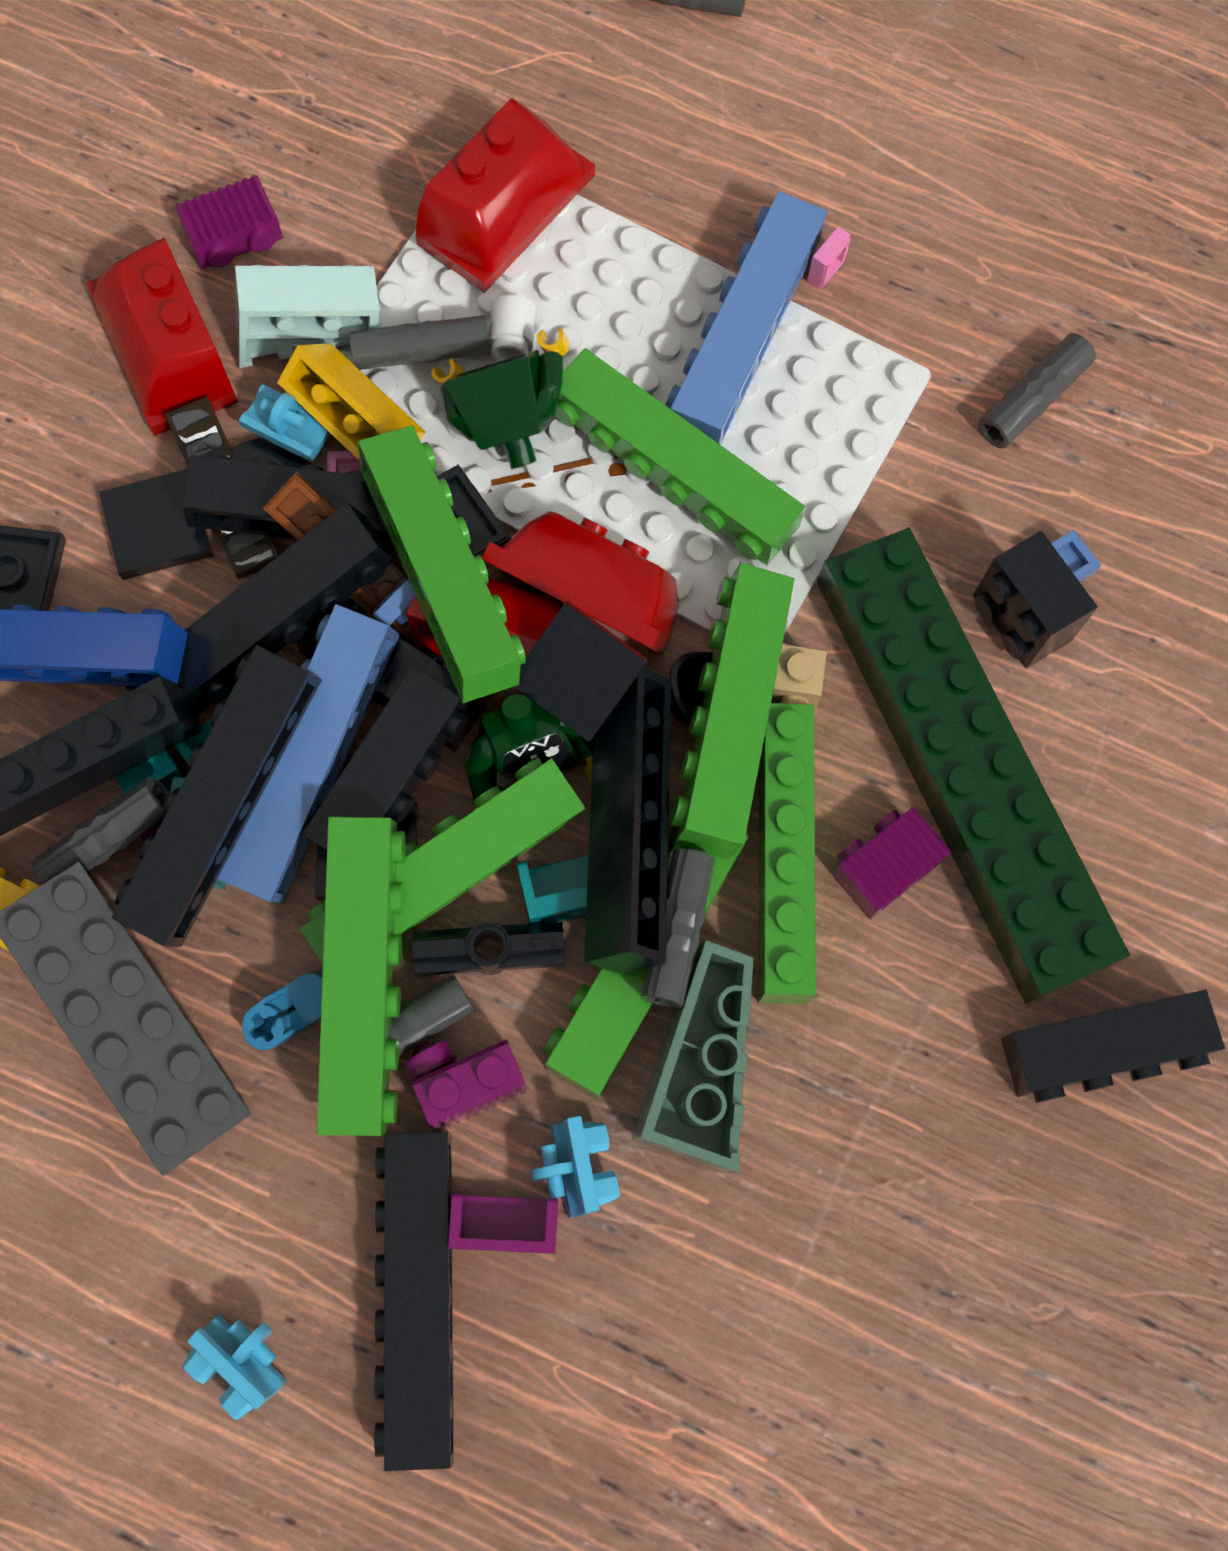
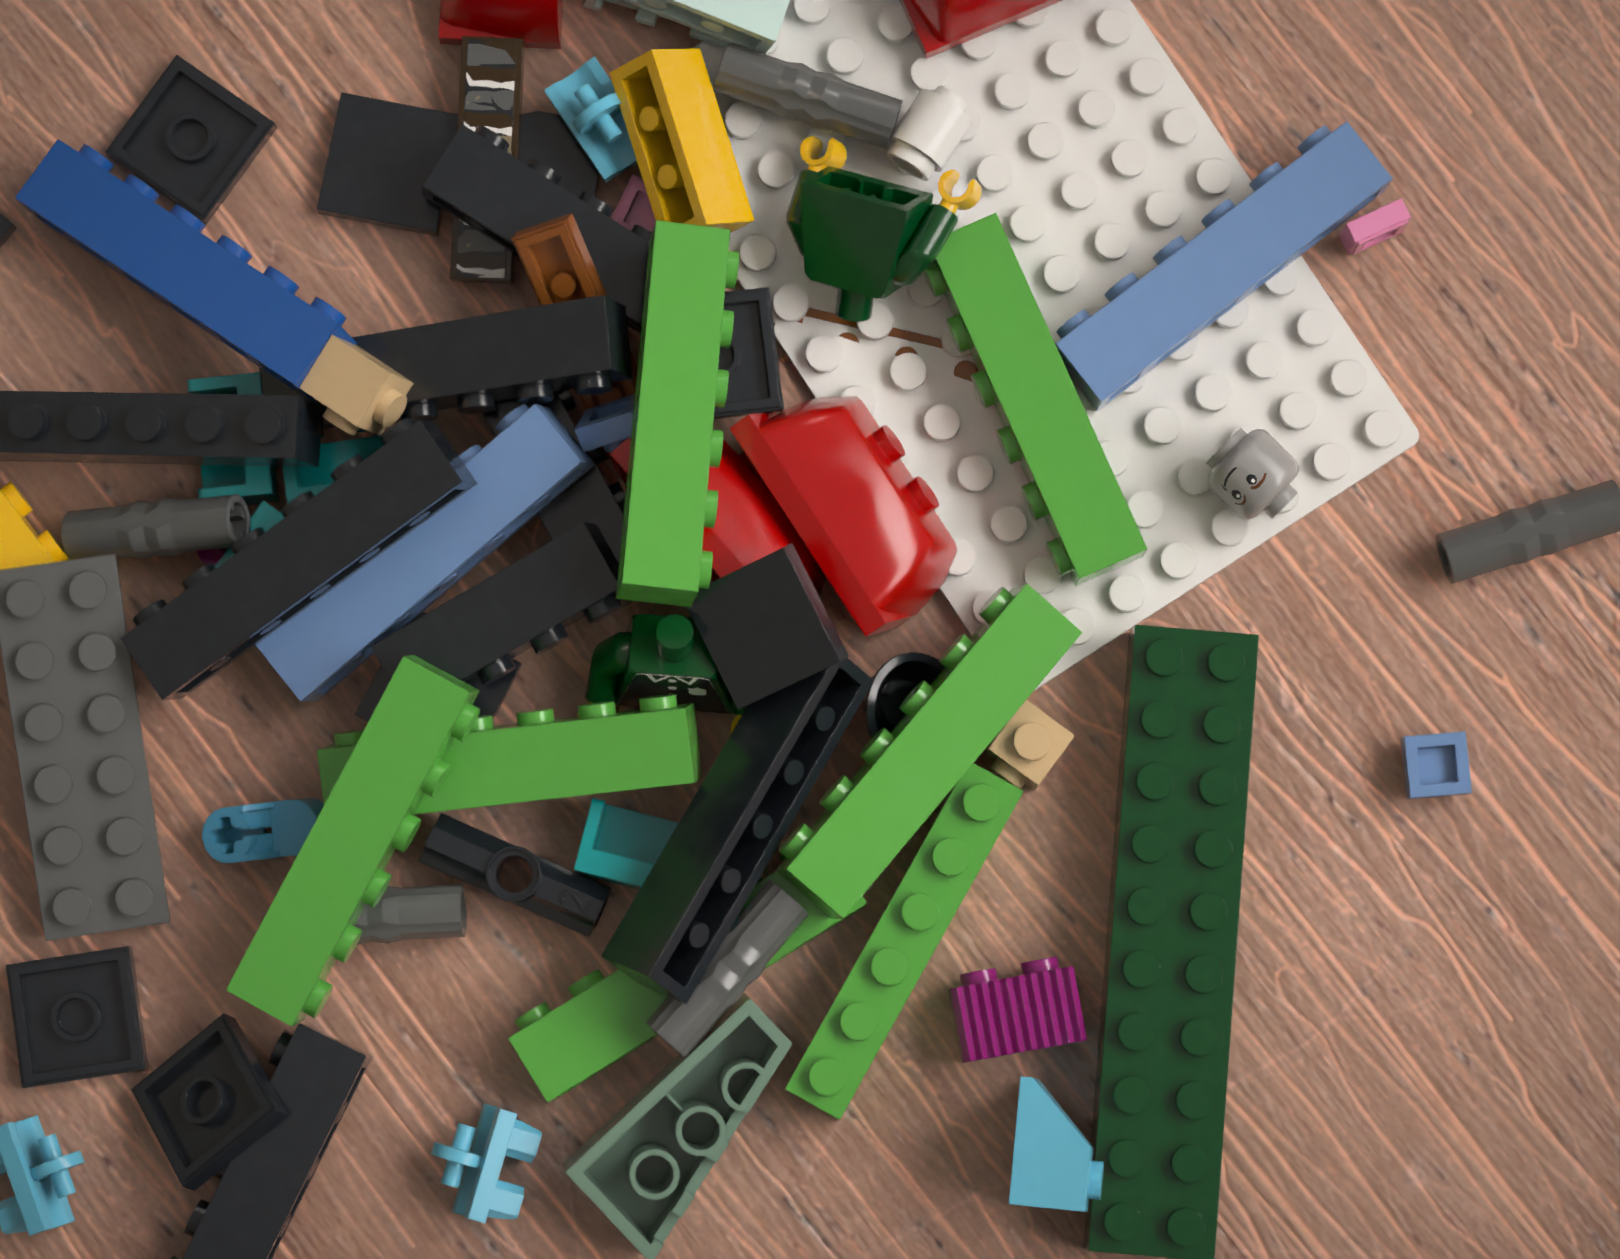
camera: 30 degrees right, 10 degrees up
(200, 655) = (356, 388): none -> tan brick
(214, 1223) = (77, 1017): none -> black tile
(346, 1231) = (209, 1102): none -> black tile
(429, 1058) = (387, 964): magenta tile -> none
(469, 1085) = (416, 1017): magenta brick -> none
(503, 1224) = (378, 1182): magenta panel -> none
(844, 432) = (1253, 474): none -> light grey head
(975, 939) = (1051, 1155): none -> medium azure slope
(1033, 600) = (1353, 797): black brick -> none

